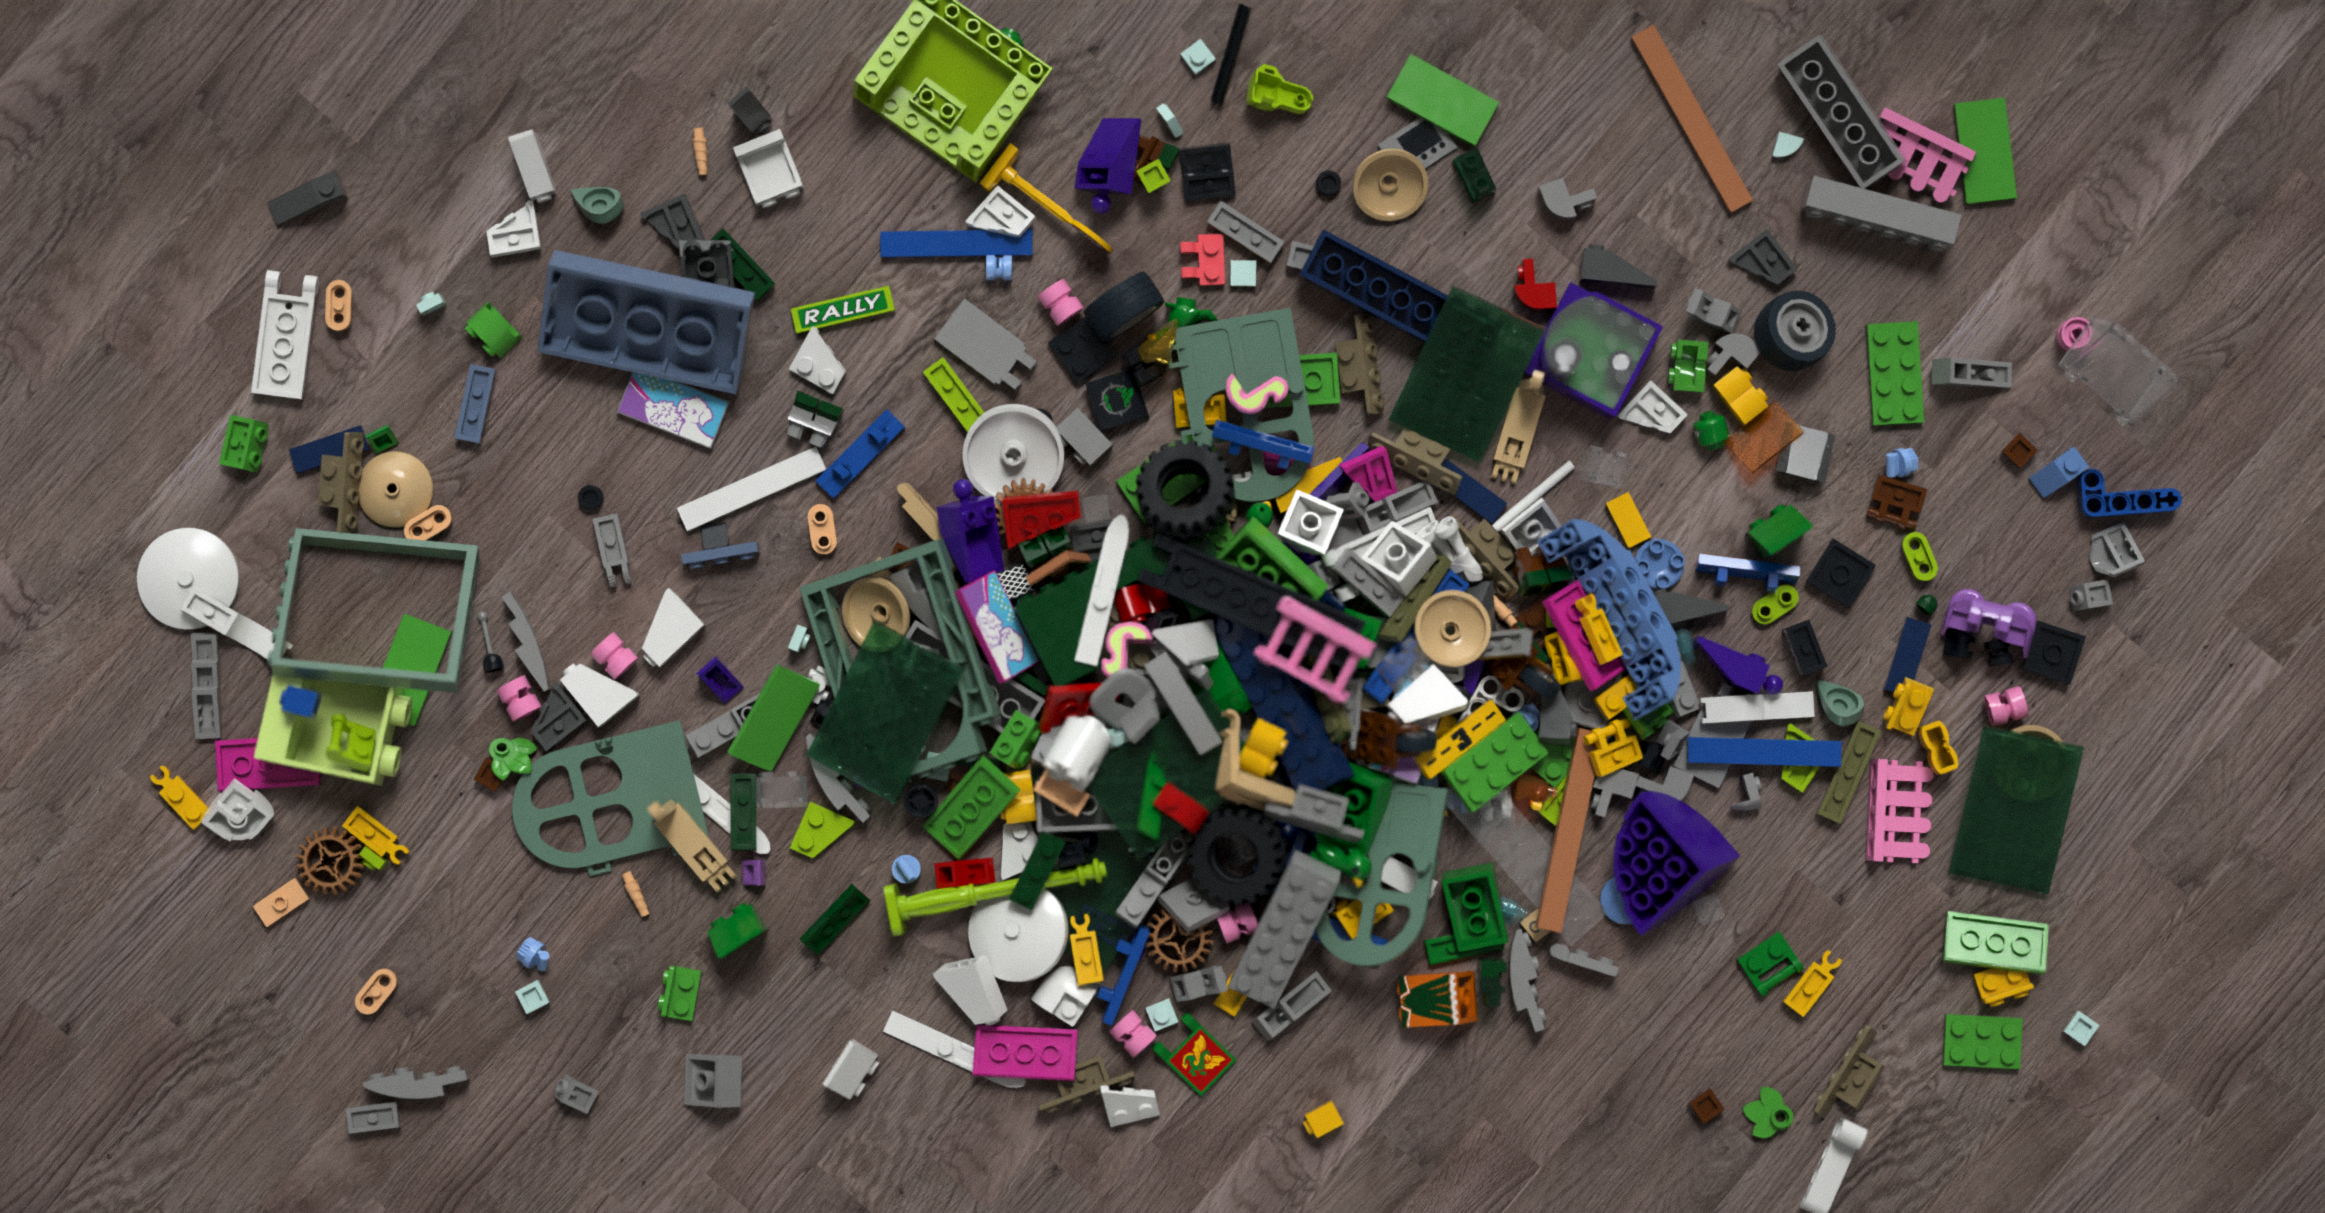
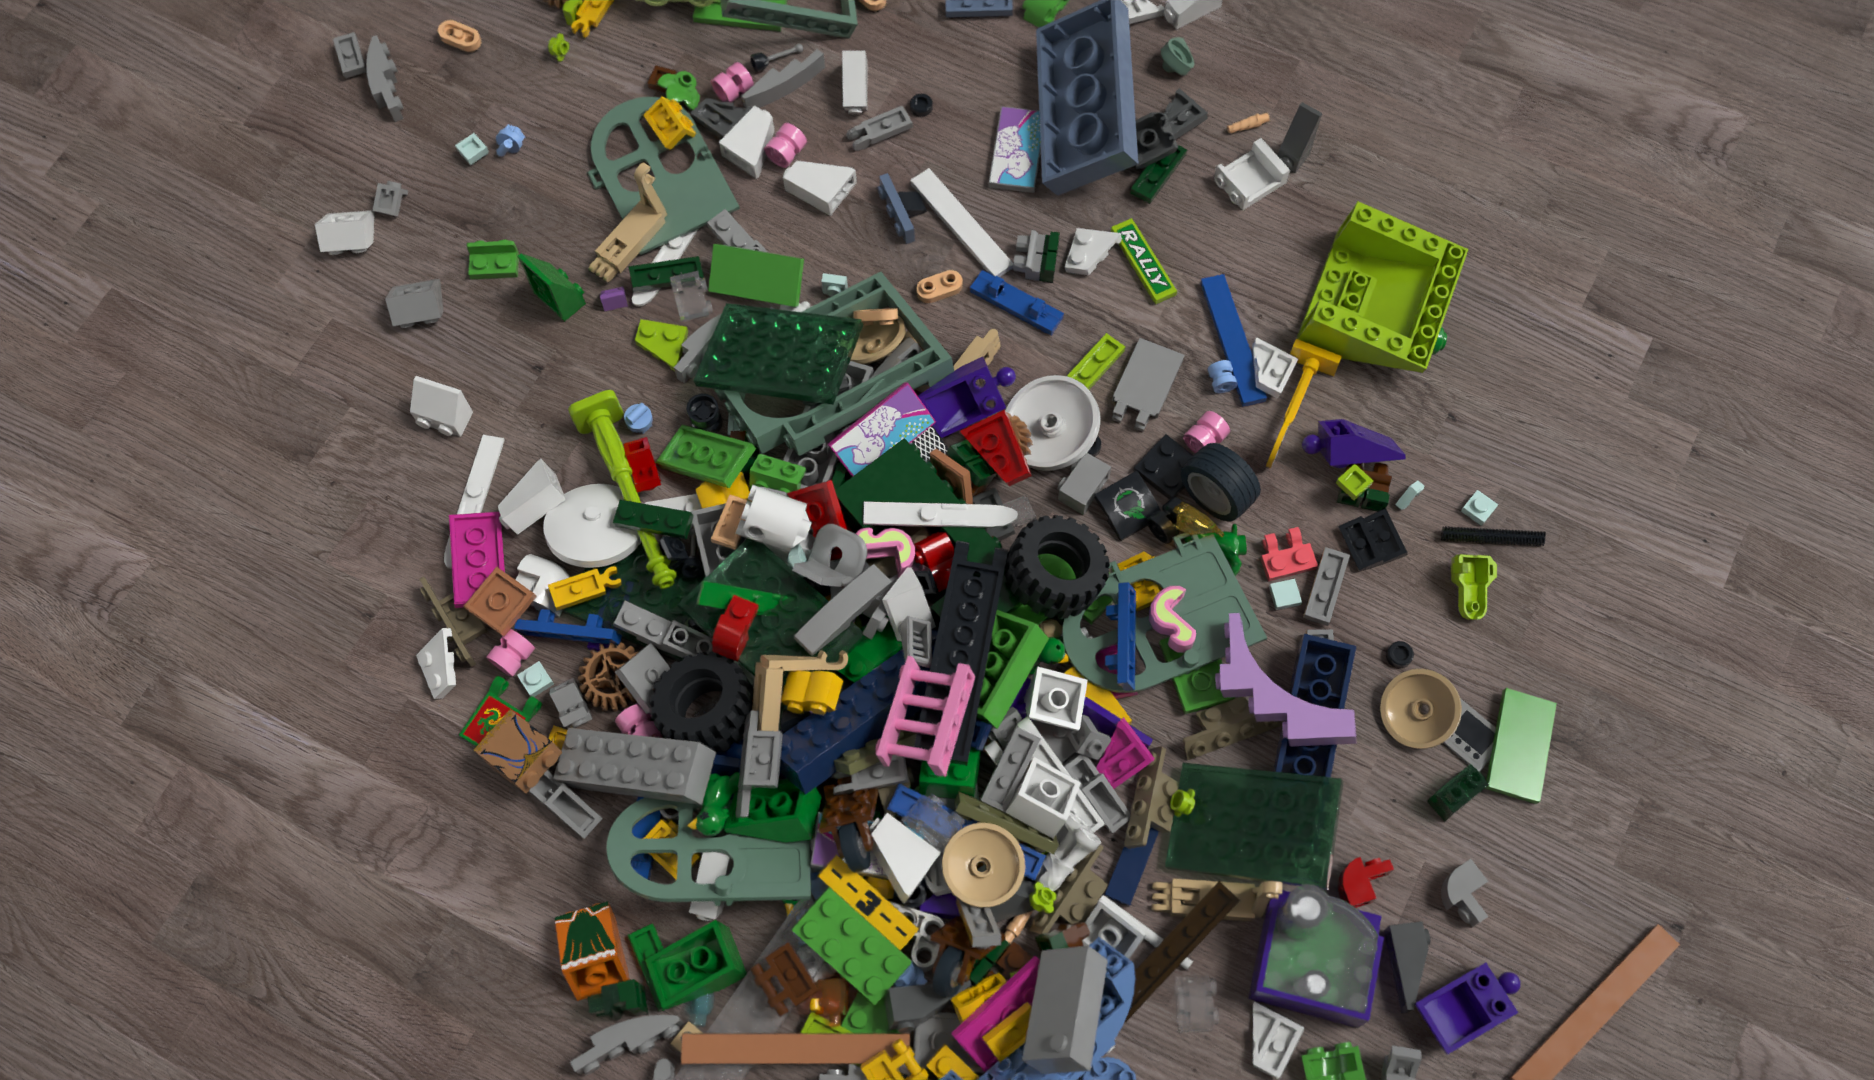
camera: 80 degrees right, 20 degrees down
(420, 882) = (558, 47): none -> lime plate
(550, 563) = (854, 81): none -> white slope
(560, 775) = (669, 122): none -> yellow bracket
(606, 1144) = (345, 232): none -> white slope
(634, 891) = (580, 207): light nougat animal -> none
(720, 679) = (784, 229): dark purple slope -> none
(834, 919) = (579, 368): dark green plate -> none
(854, 604) = (884, 316): none -> light nougat plate
(1083, 1034) = (500, 601): none -> nougat tile
(1221, 631) = (924, 631): none -> light grey slope
(1244, 1035) = (518, 751): none -> medium nougat slope
(1322, 1119) = (448, 859): yellow brick -> none
(1328, 341) = (1305, 723): none -> lavender arch
(1428, 431) = (1182, 802): none -> lime plate
(1488, 582) = (1042, 898): none -> lime plate
(1509, 820) = (791, 974): none -> reddish brown plate
(1553, 467) = (1180, 943): none -> dark brown plate
(1599, 587) = (1065, 1010): none -> light grey brick
(1628, 520) = (1146, 1040): yellow tile -> none
(1668, 235) = (1468, 1009): none -> dark purple slope

